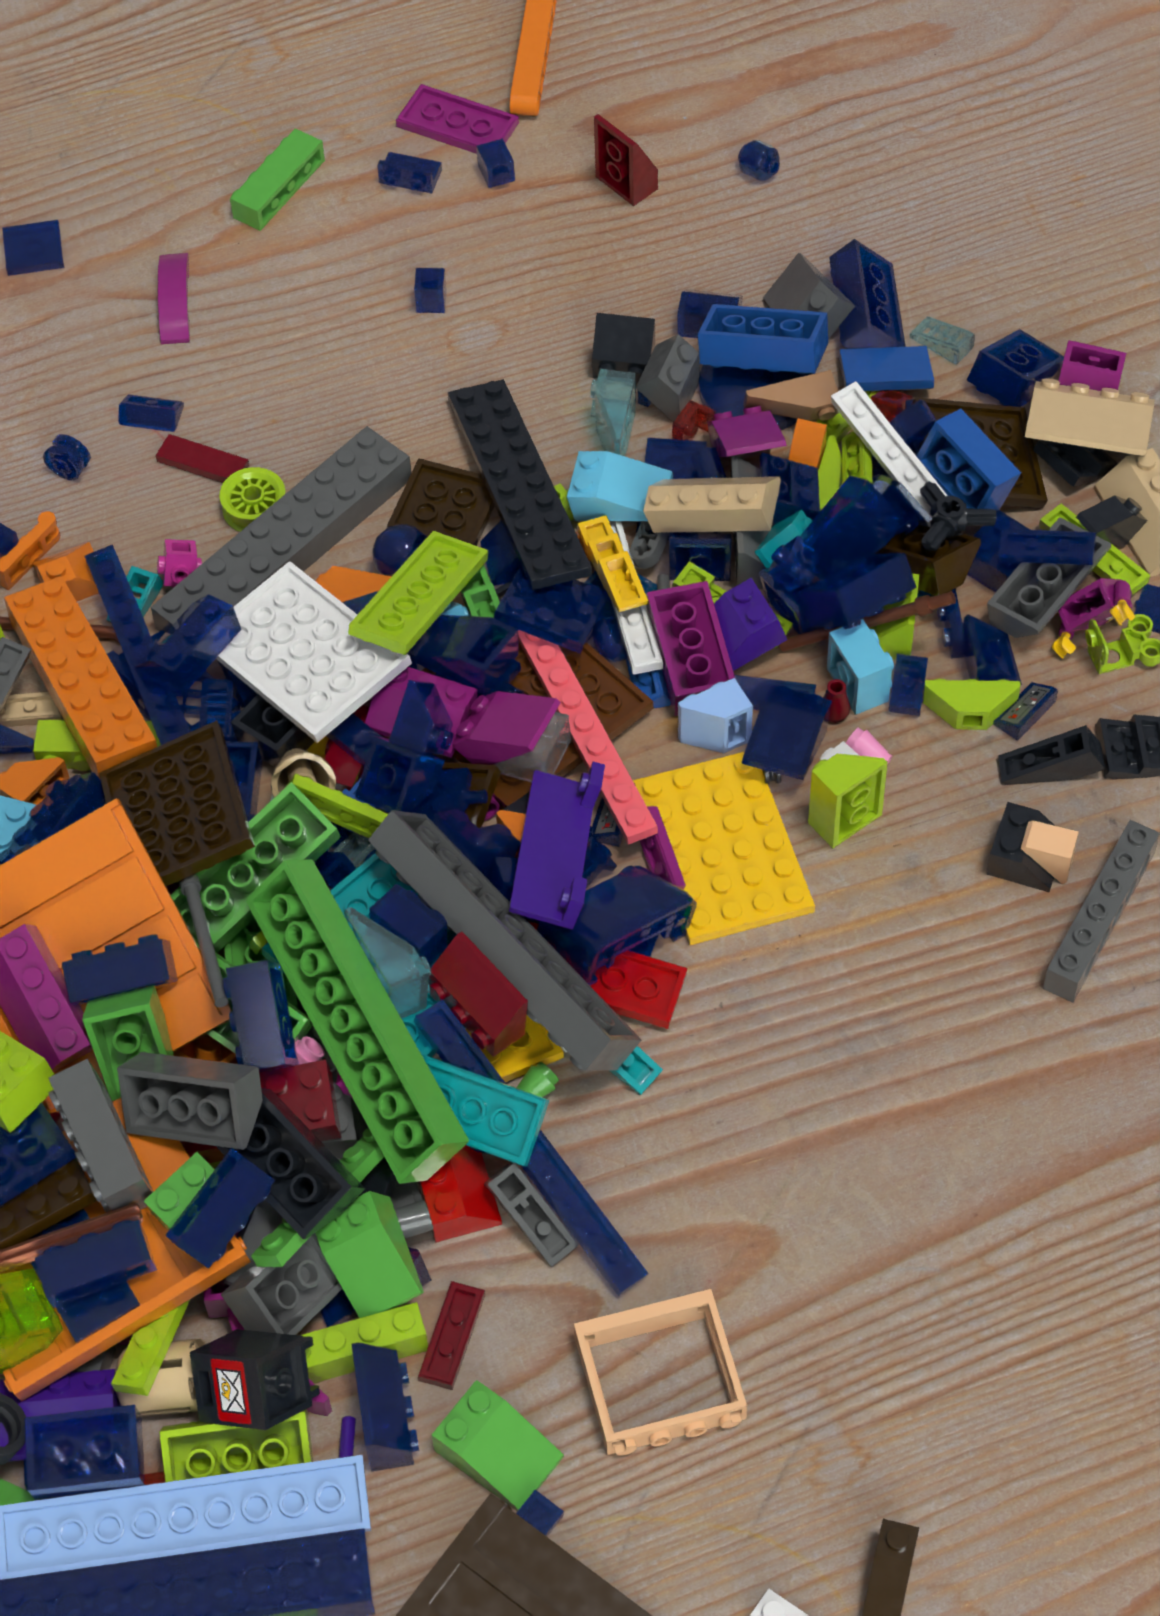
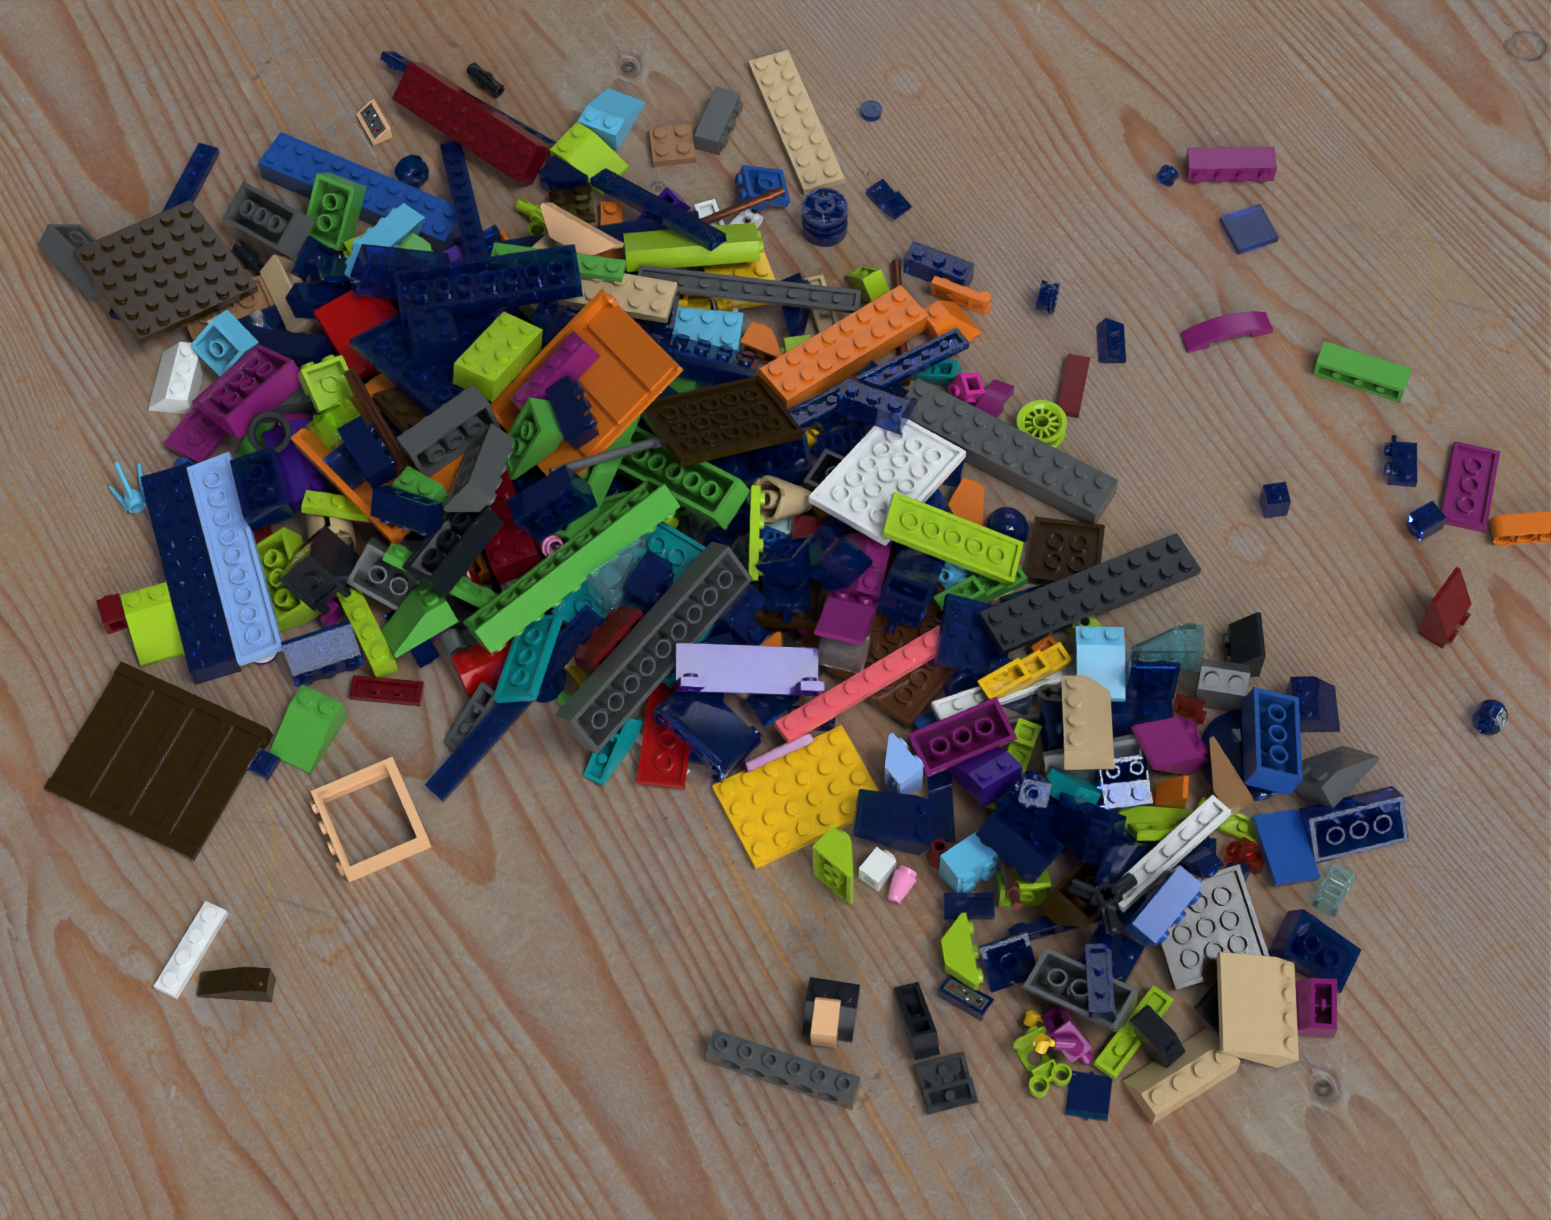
camera: 80 degrees right, 5 degrees up
(206, 539) = (995, 397): none -> magenta slope
(652, 430) = (1151, 679): none -> clear blue slope

